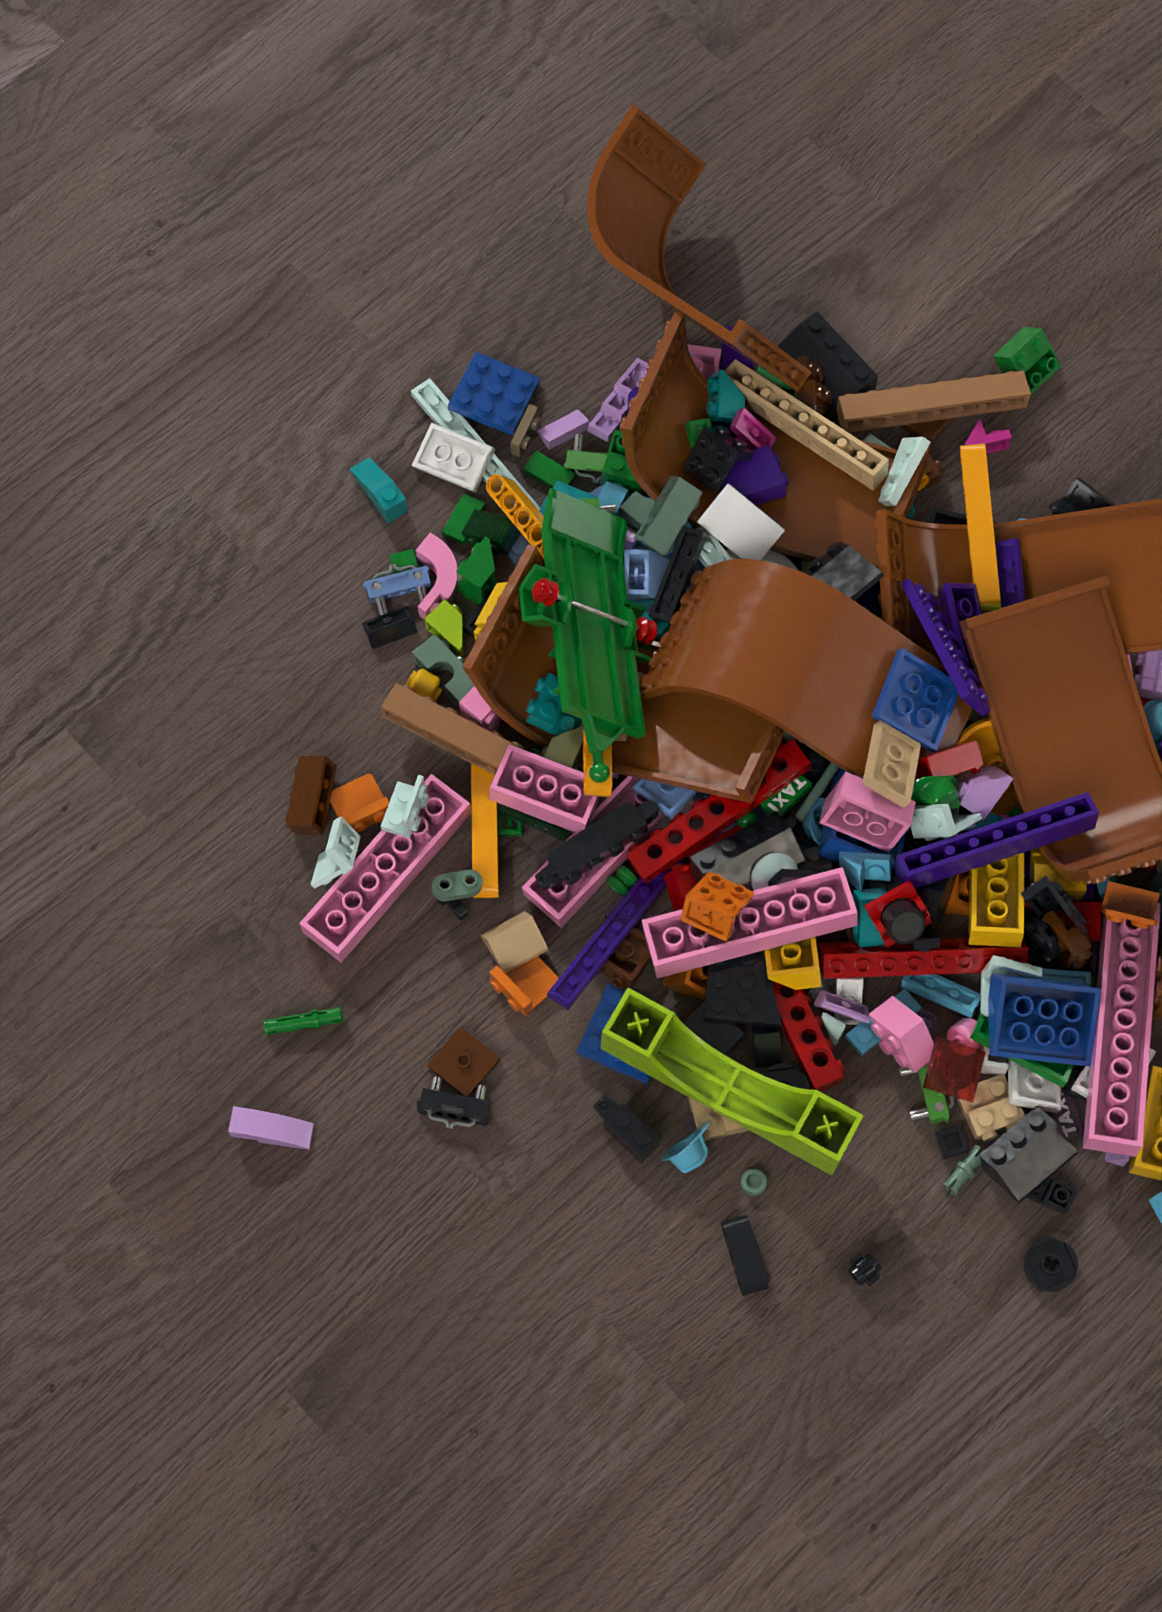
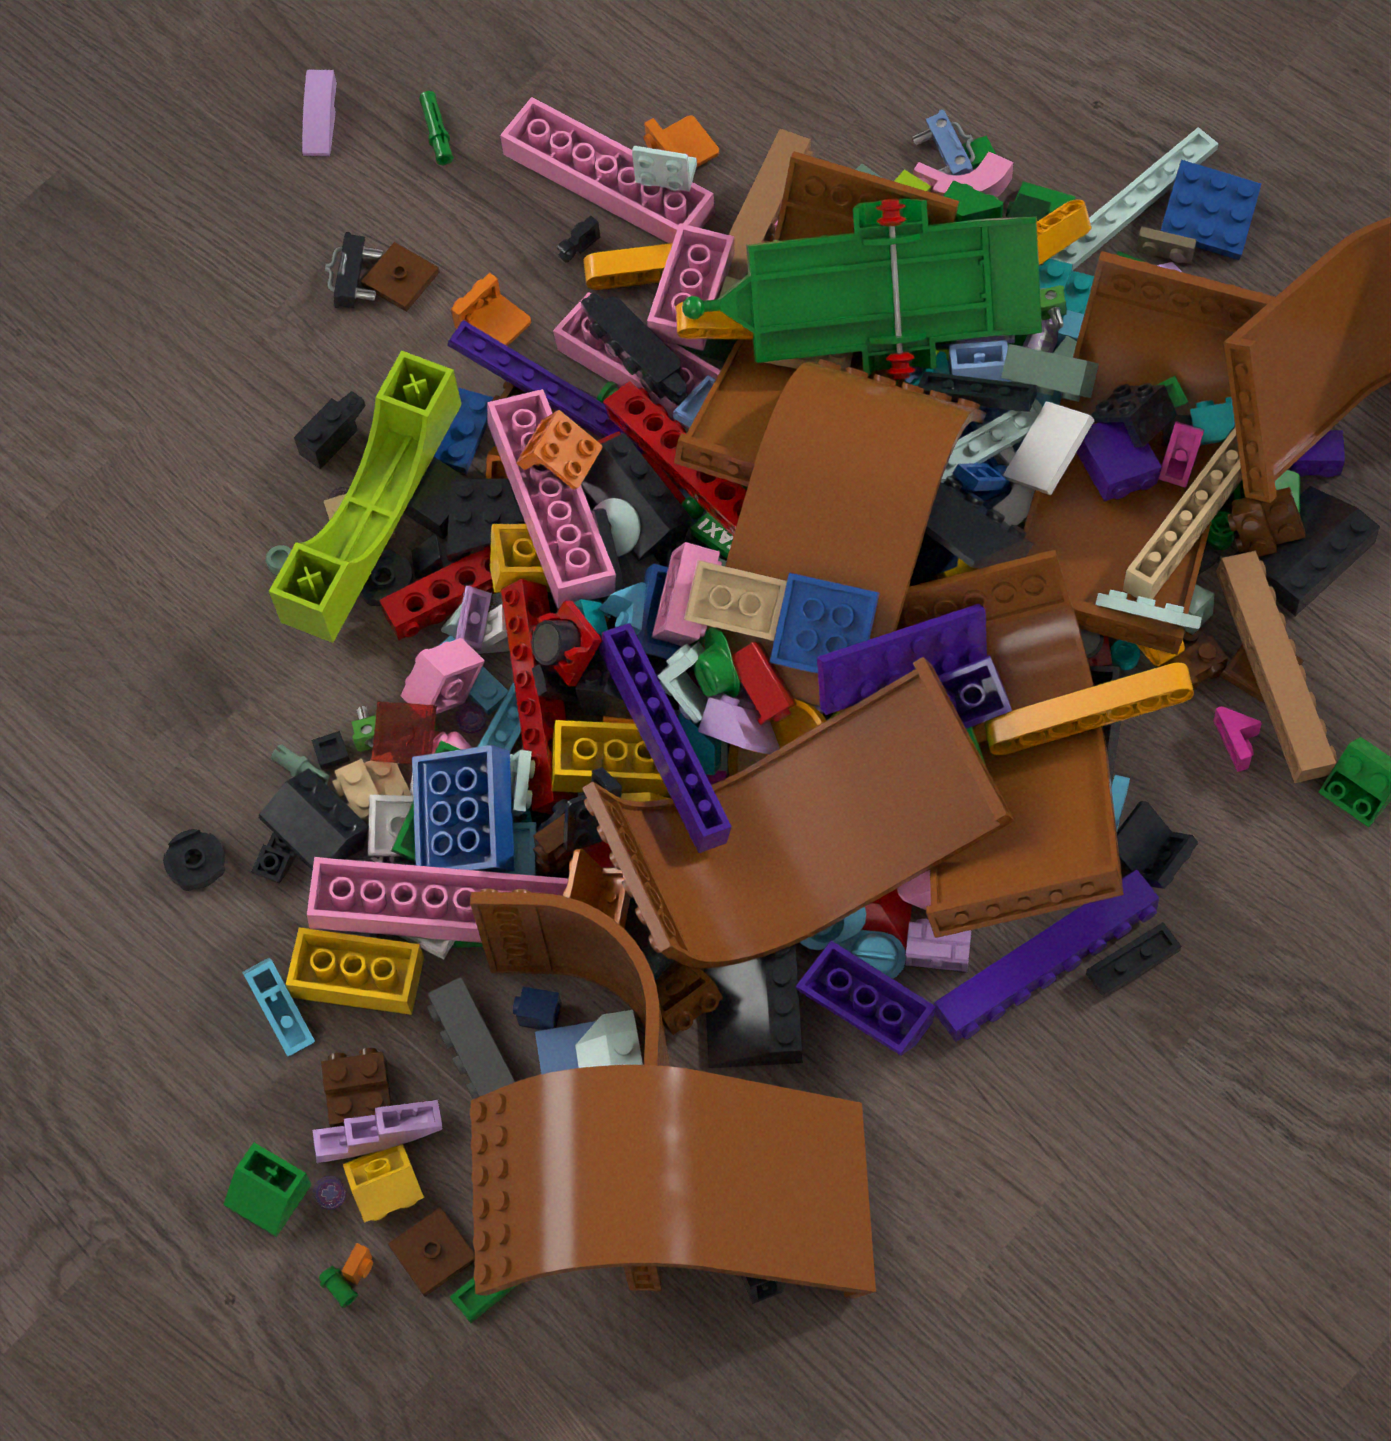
camera: 90 degrees right, 5 degrees down
(310, 795) = (684, 97): reddish brown brick -> none
(339, 853) = (616, 117): light aqua bracket -> none
(380, 489) = (1065, 116): teal slope -> none
(389, 627) = (898, 148): black slope -> none
(453, 457) = (1117, 177): white tile -> none
(457, 886) = (588, 232): sand green plate -> none
(514, 941) = (533, 301): tan slope -> none
(690, 1151) = (305, 487): medium azure piece -> none
(744, 1255) = (197, 553): black beam -> none
(864, 1269) = (183, 668): black gear -> none
(1010, 572) = (1032, 754): dark purple tile -> none

